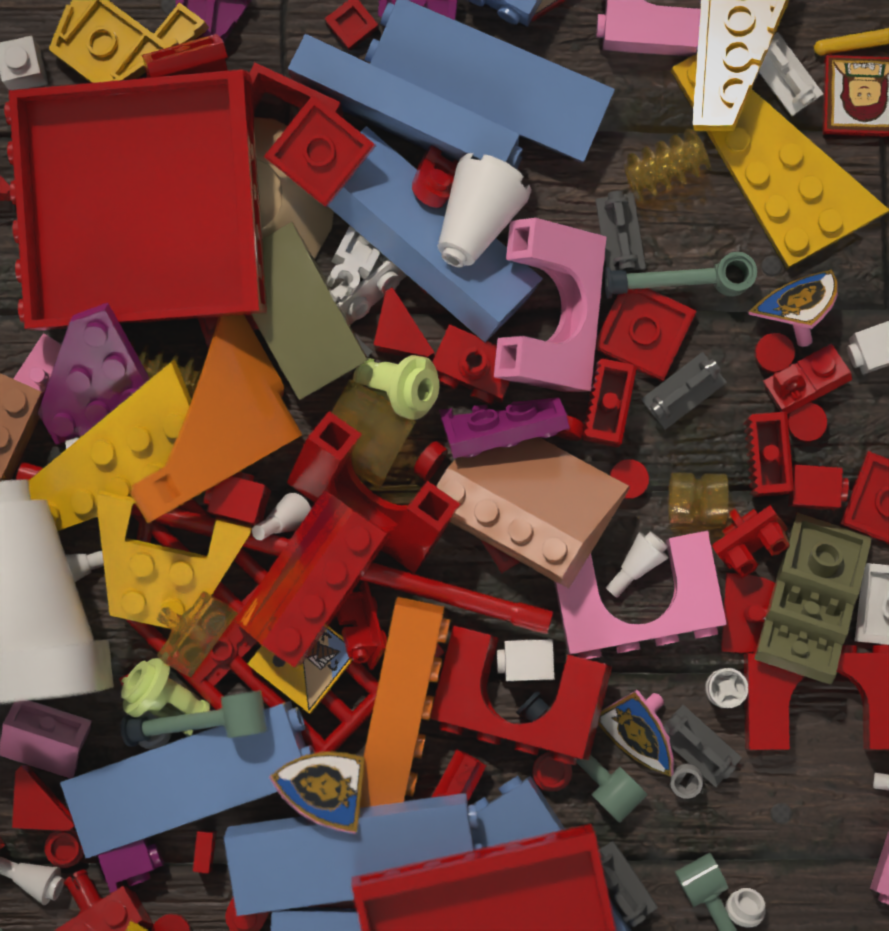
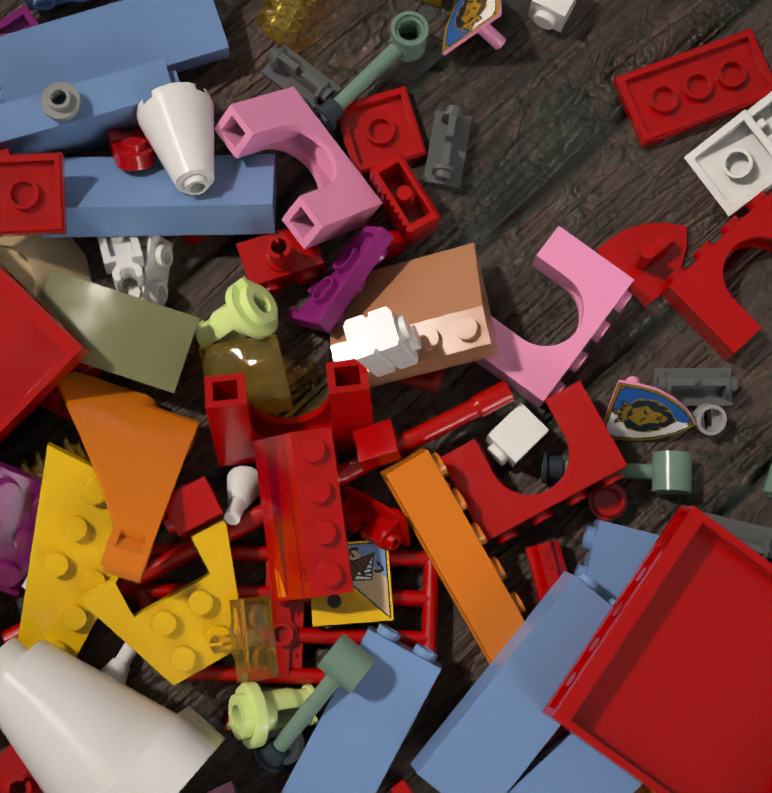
camera: 50 degrees left, 5 degrees down
(323, 788) = (459, 663): shield -> none
(398, 331) = (201, 282): red slope -> none
(413, 574) = (376, 444): none -> red tile
(414, 113) = (63, 111): none -> light grey plate
(430, 460) = (311, 356): red tile -> none
(479, 505) = (382, 341): none -> white brick
(632, 474) = (466, 235): red tile -> none
(643, 556) = (528, 290): white cone -> none
(698, 498) = (533, 208): clear yellow wheel -> none
(732, 688) = (680, 322): white wheel -> none
(748, 535) = (588, 205): red hips -> none
(769, 454) = (550, 136): red brick -> none
(774, 352) = (486, 68): red tile -> none
(807, 379) = (527, 65): red hinge -> none
(807, 423) = (553, 96): red tile -> none
(813, 598) = (677, 208): olive slope -> none
(818, 487) = (603, 132): red brick -> none

